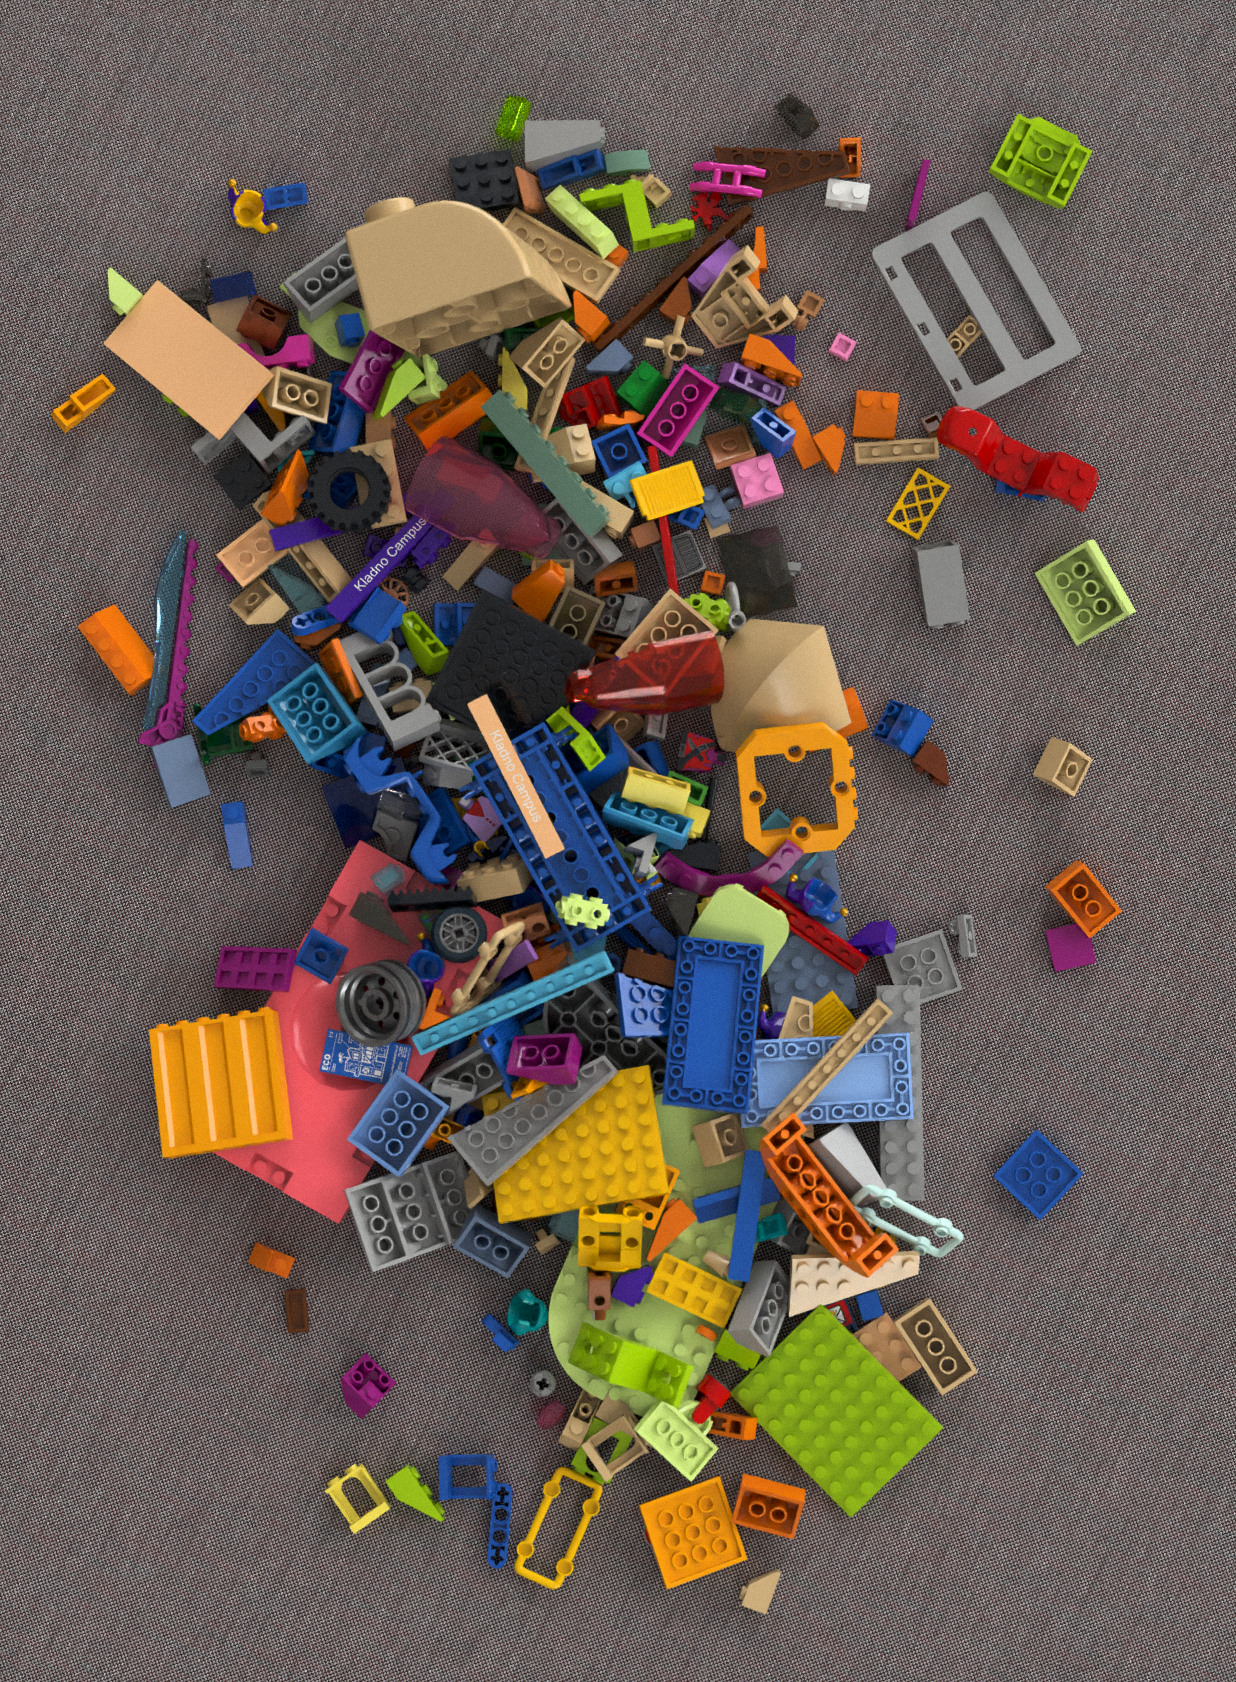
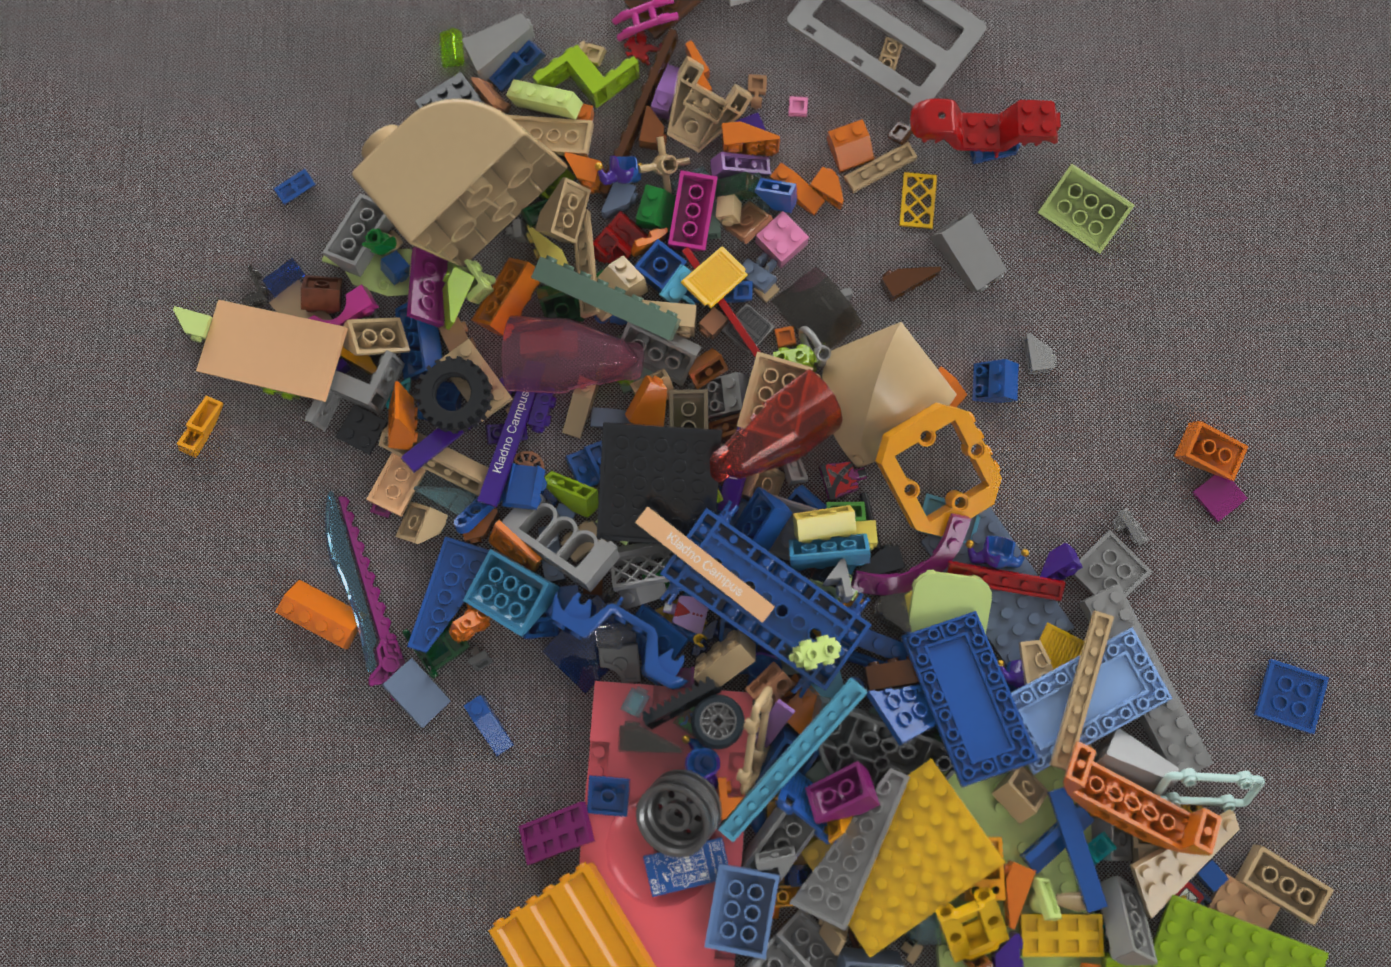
camera: 25 degrees left, 5 degrees down
(248, 209) = (269, 210): yellow piece -> none
(346, 298) = (381, 242): none -> green animal
(416, 580) = (542, 444): black wheel -> none
(583, 744) = (749, 510): lime panel -> none
(625, 335) = (621, 170): none -> piece
(626, 161) = (557, 40): sand green slope -> none
(693, 1249) = (1044, 900): none -> yellowish green tile
(716, 426) = (728, 210): none -> tan brick
(860, 581) = (904, 280): none -> reddish brown slope
(933, 763) = (1034, 398): copper slope -> none
(958, 722) = (1038, 356): none -> light grey slope
(1062, 766) = (1139, 353): tan slope -> none

